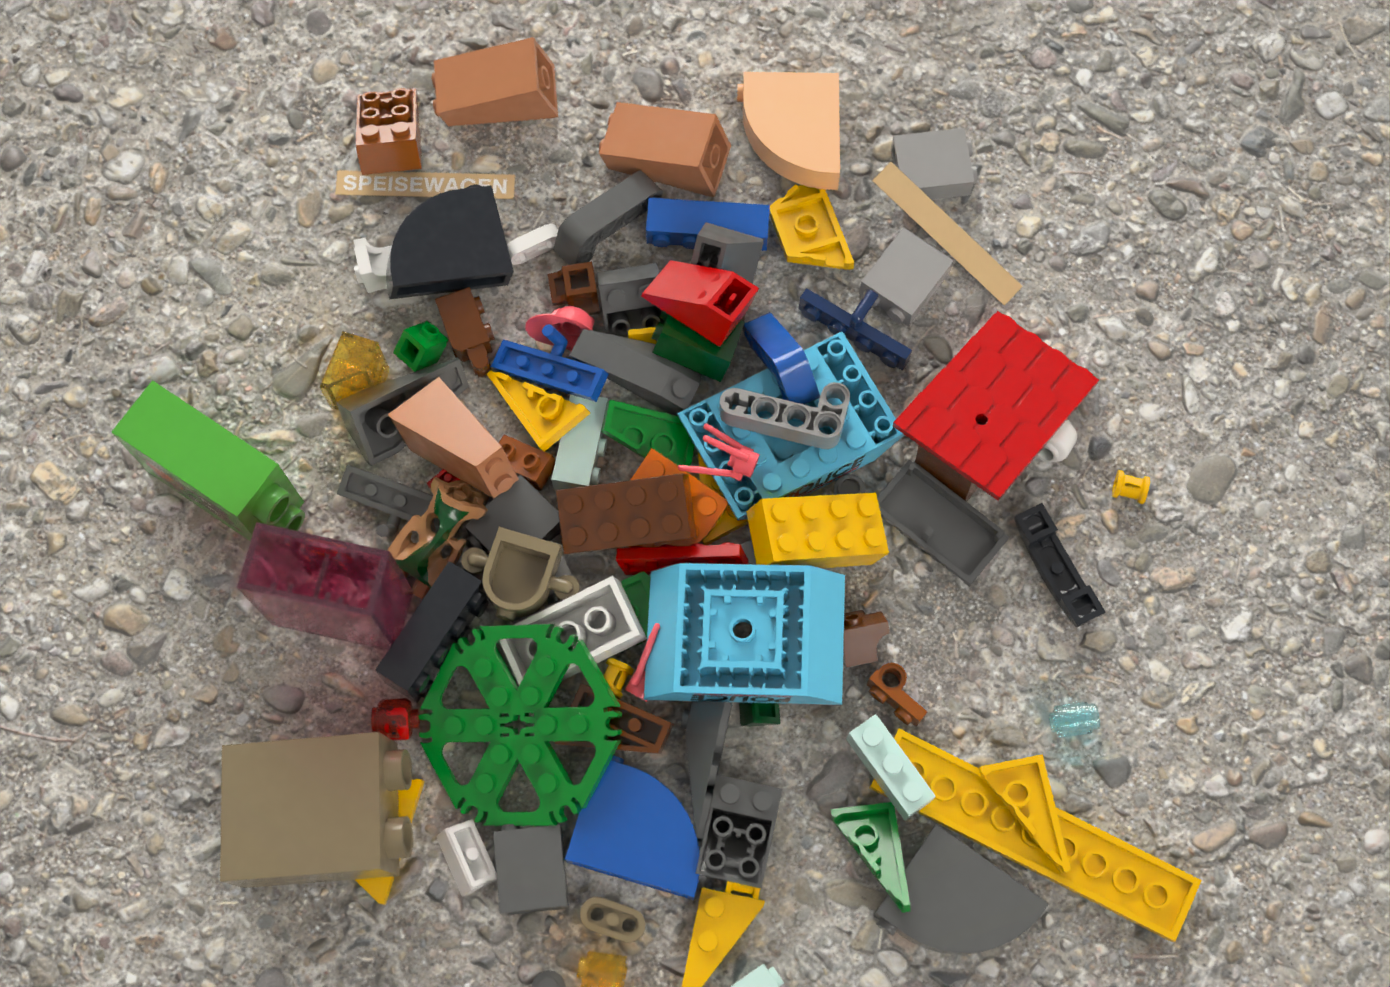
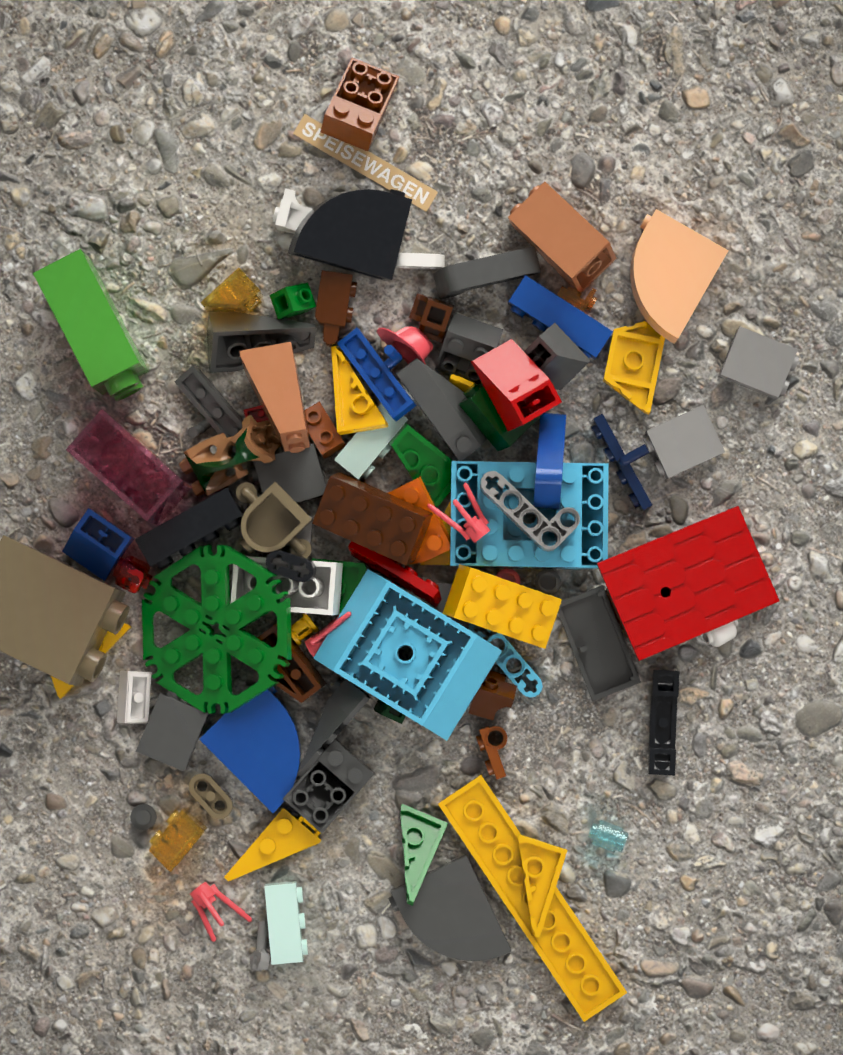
camera: 30 degrees right, 15 degrees up
(337, 703) = (97, 544): none -> blue slope
(496, 85) = (459, 113): nougat slope -> none
(564, 598) = (289, 572): none -> black beam
(712, 194) = (573, 296): none -> clear orange bracket
(855, 582) = (508, 653): none -> medium azure beam
(890, 767) = (456, 801): light aqua brick -> none
(947, 233) = (735, 425): tan sticker -> none
(1130, 487) = (746, 691): yellow bush -> none

